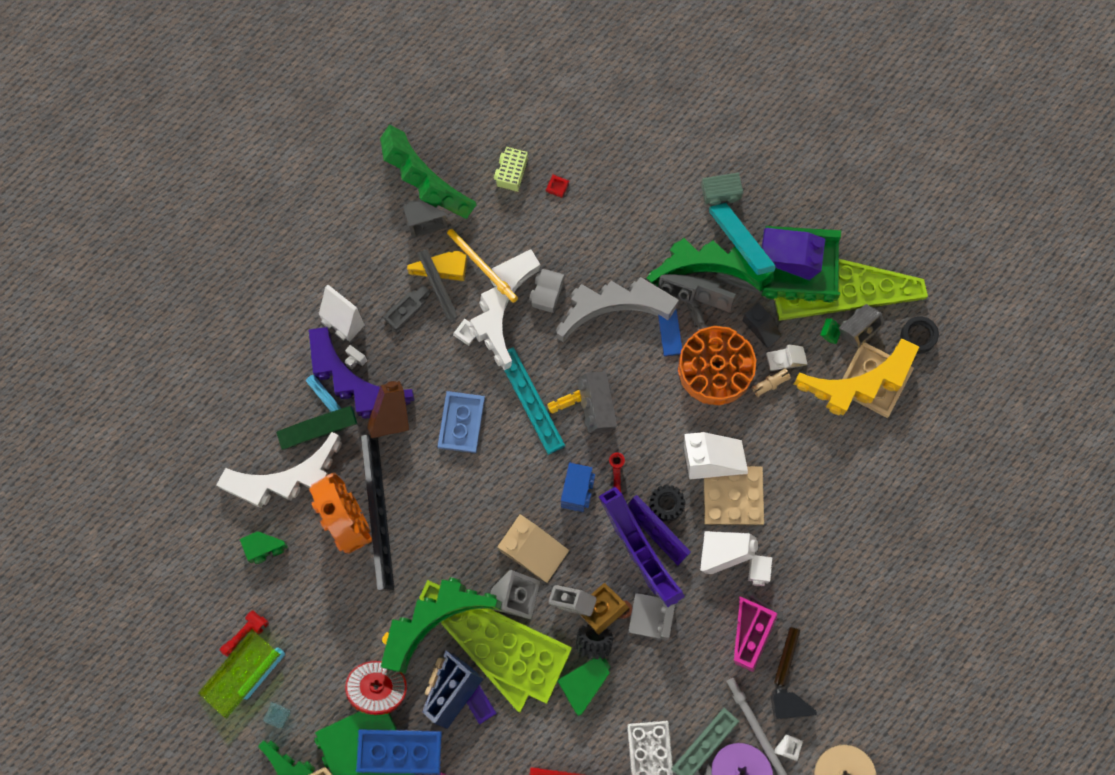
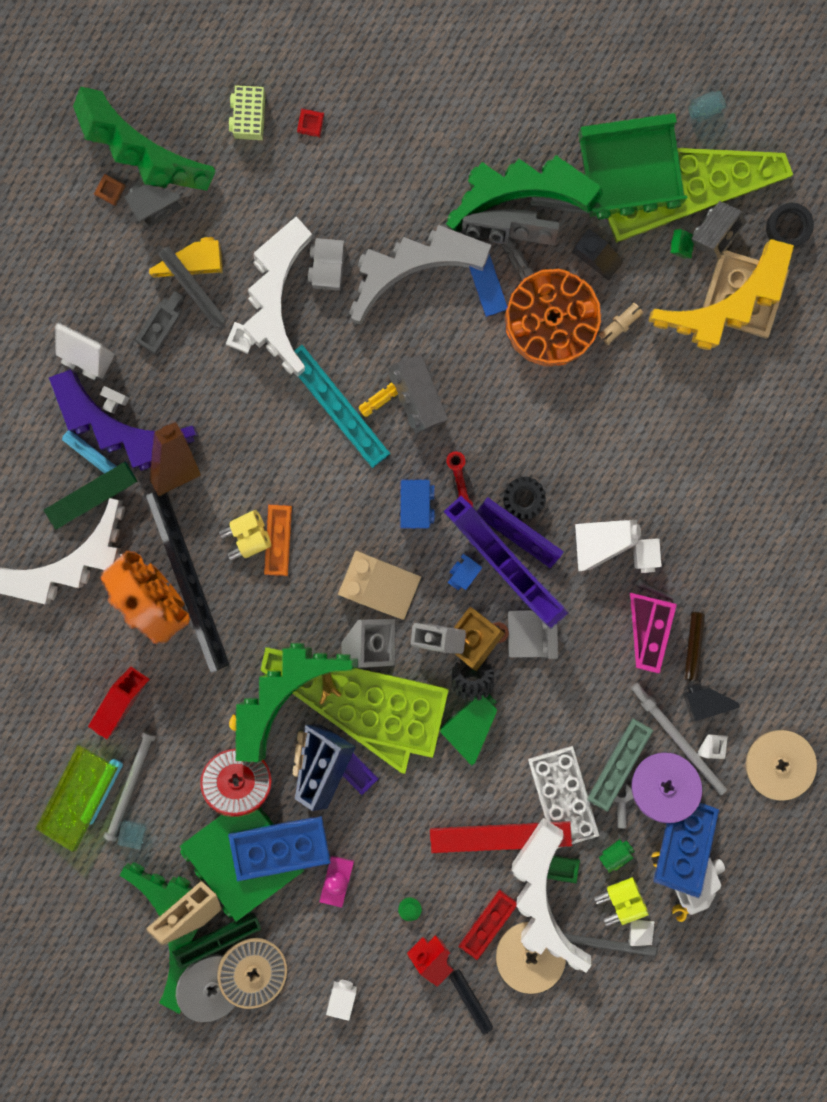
camera: 15 degrees left, 15 degrees up
(254, 622) = (79, 737): red brick -> none
(259, 545) = (61, 648): green slope -> none
(285, 674) = (129, 786): none -> light grey bar
(294, 599) = (118, 702): none -> red slope
(392, 203) = (109, 189): none -> dark orange tile
(436, 484) = (249, 534): none -> light yellow piece
(458, 496) = (279, 532): none -> orange tile
(461, 422) = (260, 451): medium blue plate -> none
(472, 623) = (328, 687): none -> pearl gold bar
(502, 286) = (272, 274): yellow bar -> none
(605, 553) = (464, 573): none -> blue brick
(713, 455) = (569, 430): white slope -> none
(722, 188) = (516, 84): sand green brick -> none
(734, 499) = (600, 471): tan plate -> none
(742, 239) = (554, 151): teal tile -> none
(787, 358) = (634, 289): white slope -> none
(794, 251) = (621, 155): dark purple slope -> none
(867, 233) = (706, 106): none -> clear light blue brick

